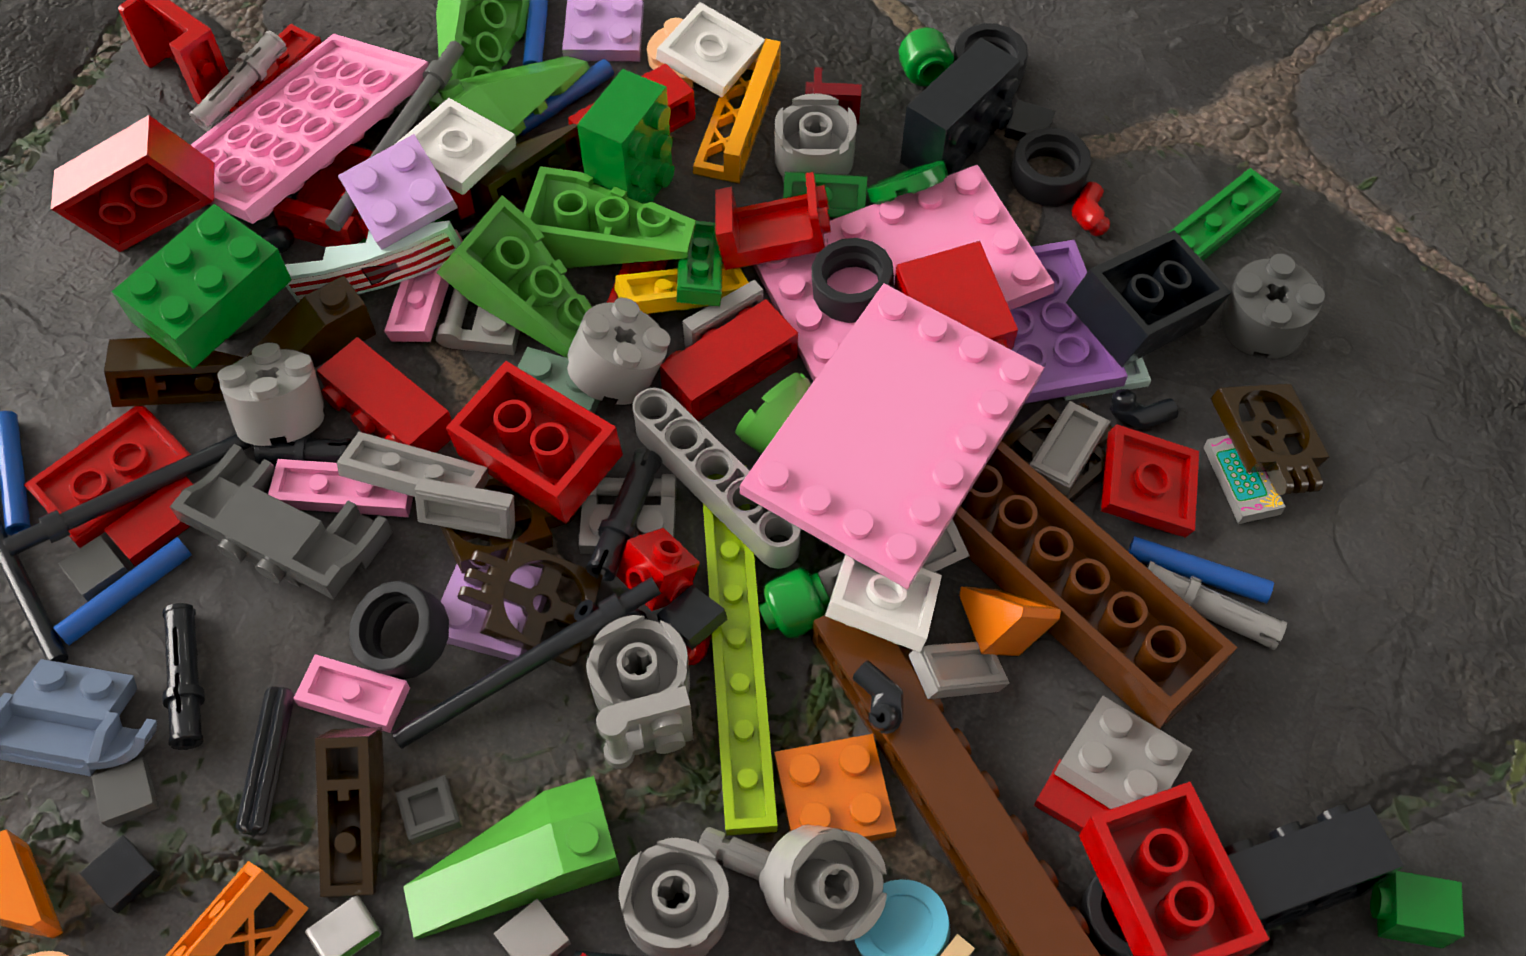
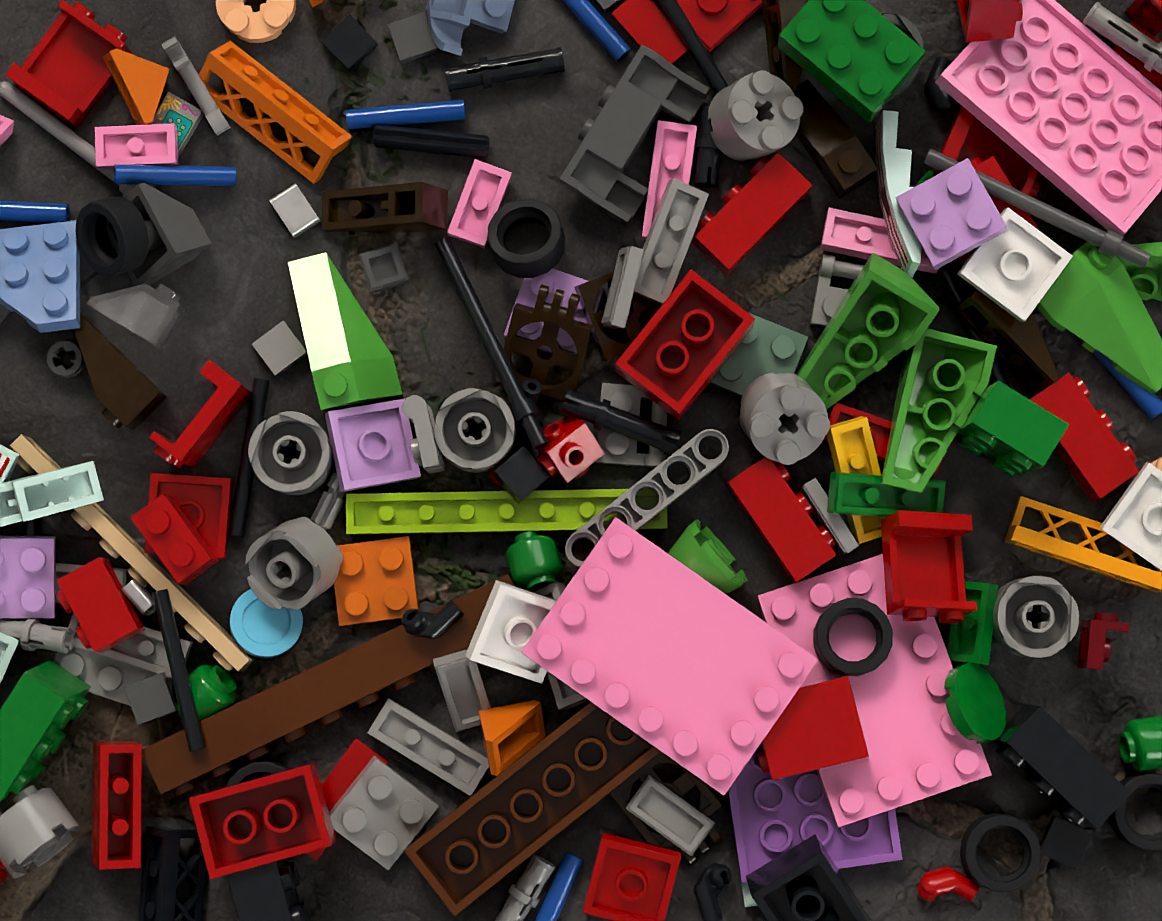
camera: 95 degrees right, 25 degrees up
(226, 796) = (405, 114): none -> blue piece
(660, 798) = (371, 445): none -> lavender plate
(1032, 711) = (429, 746): none -> light grey plate

